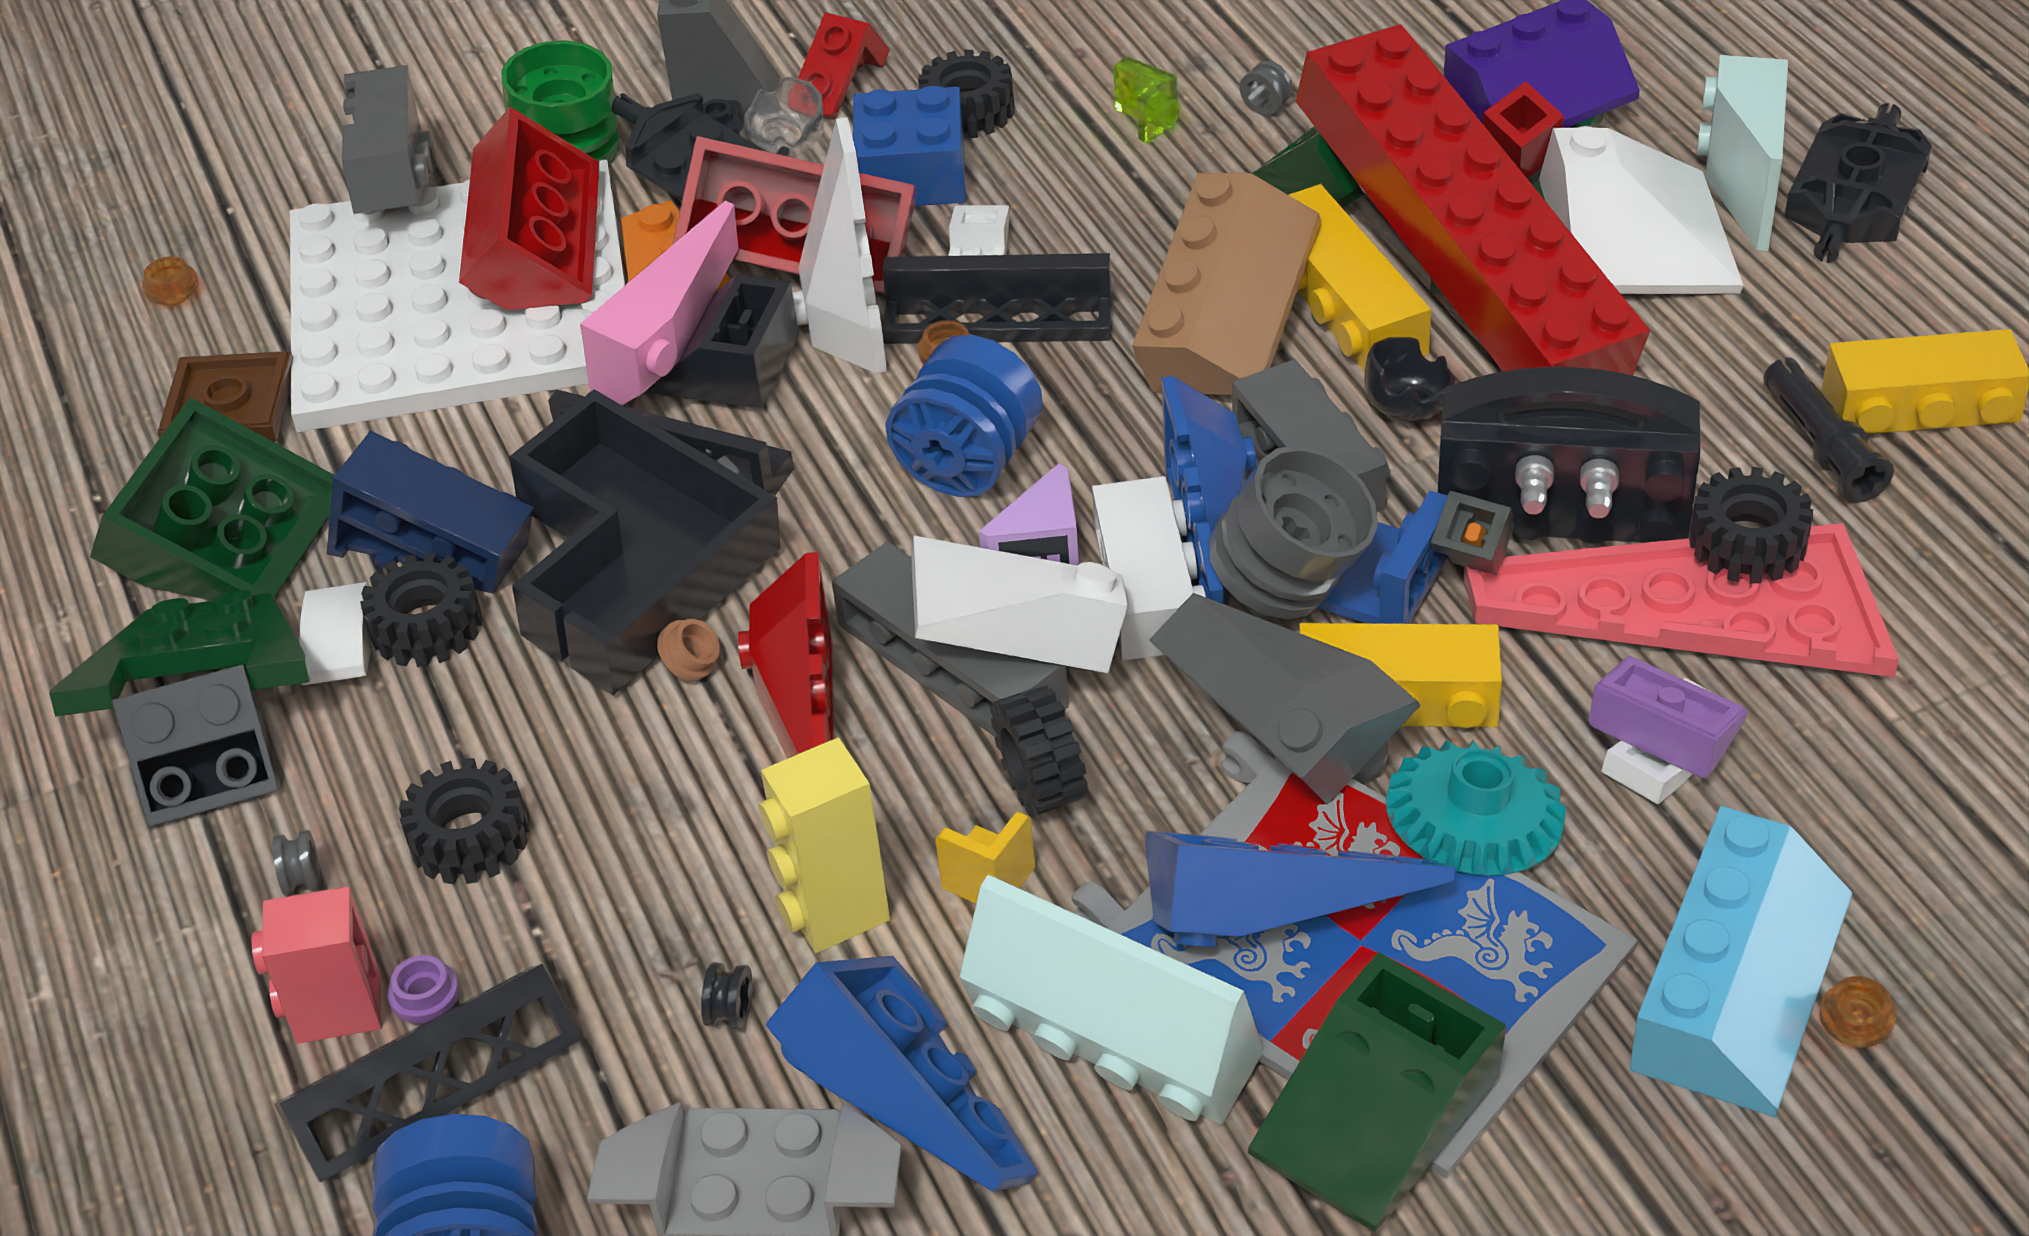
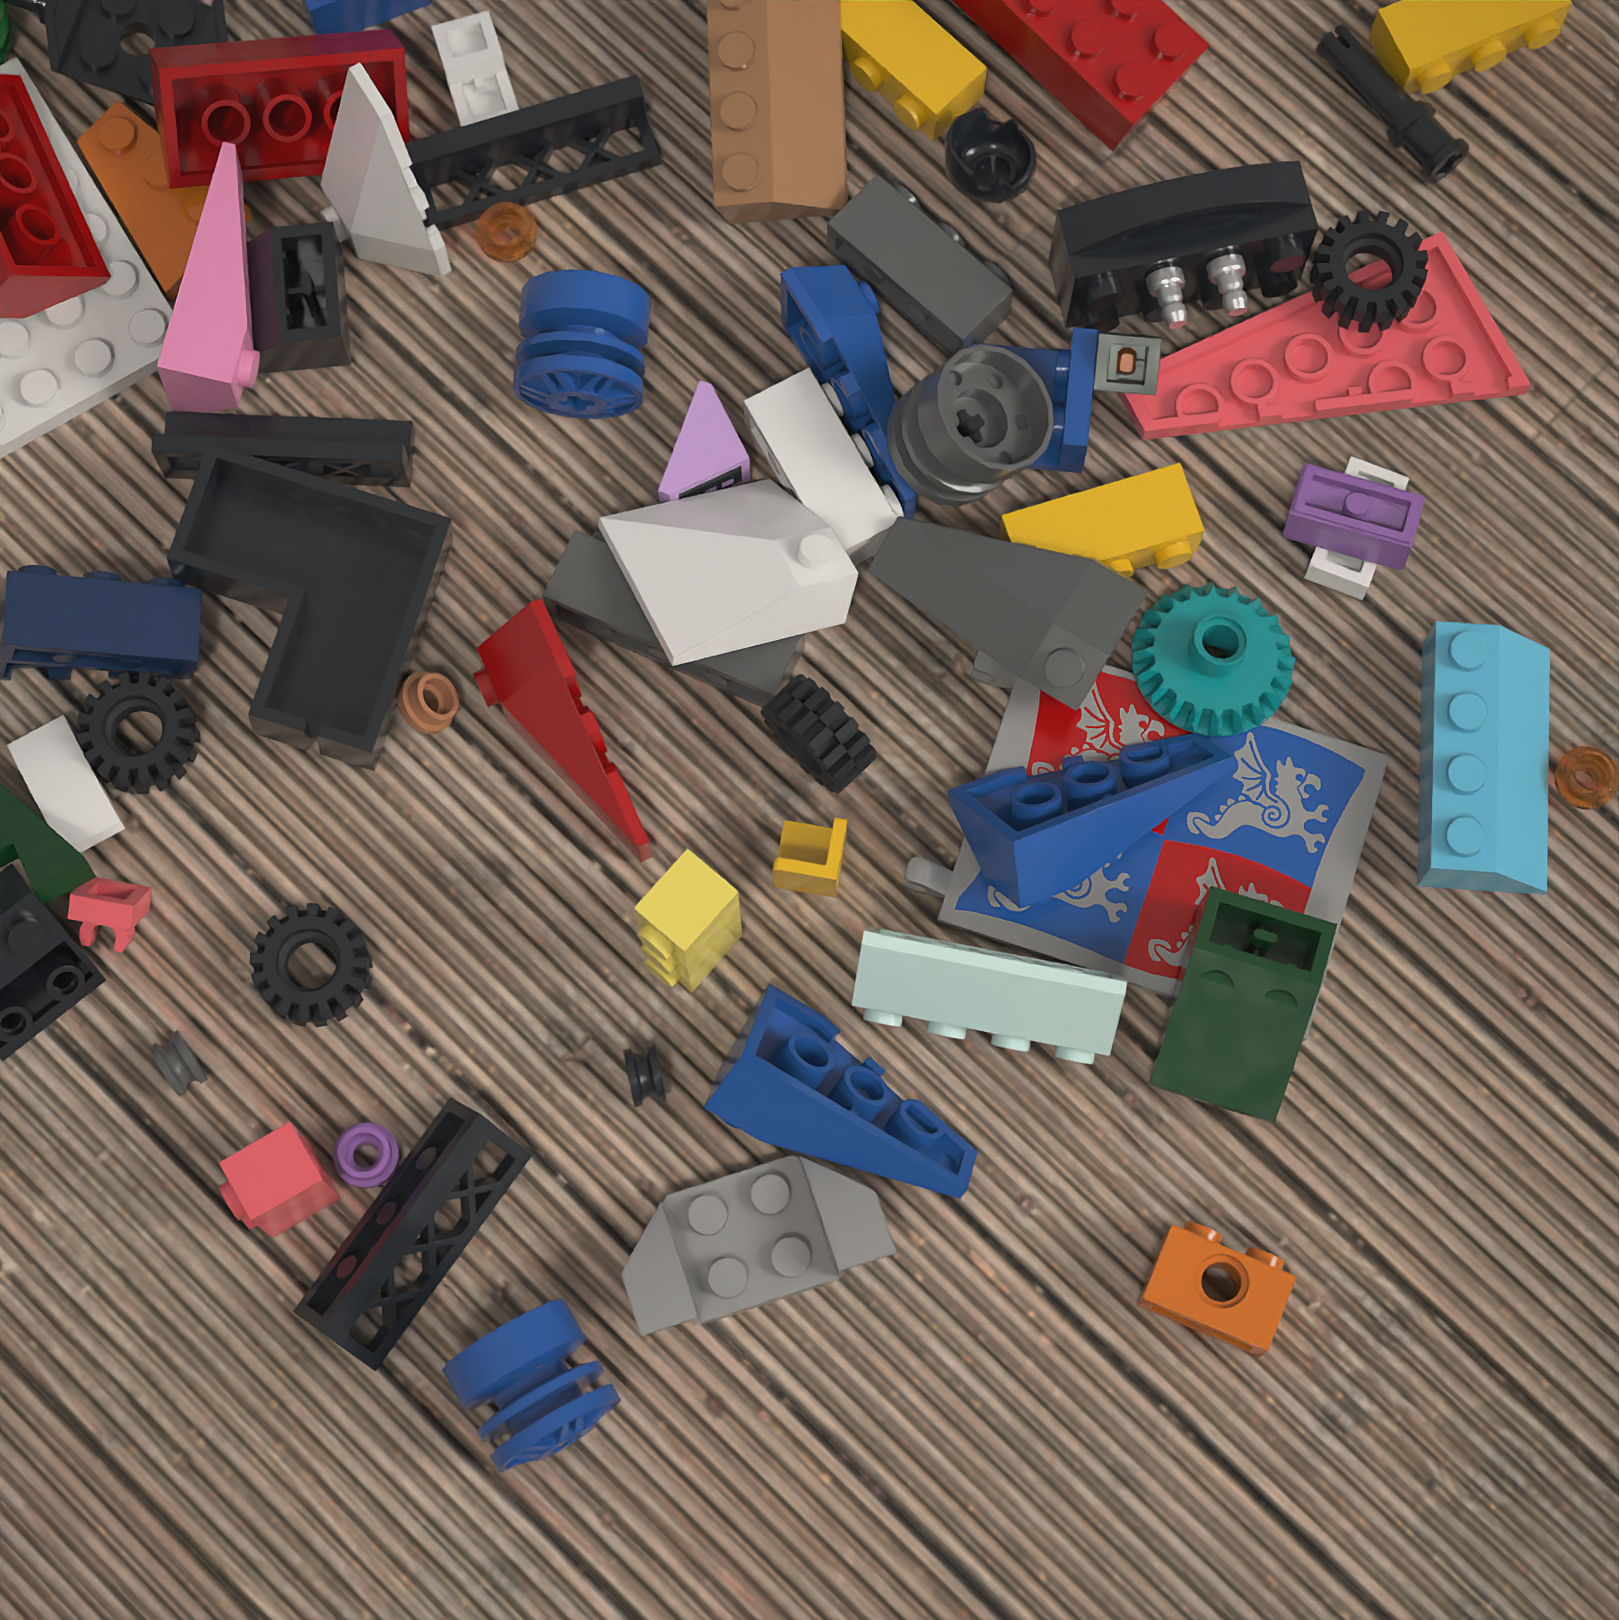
camera: 25 degrees left, 30 degrees up
(312, 728) = (111, 905): none -> coral tile

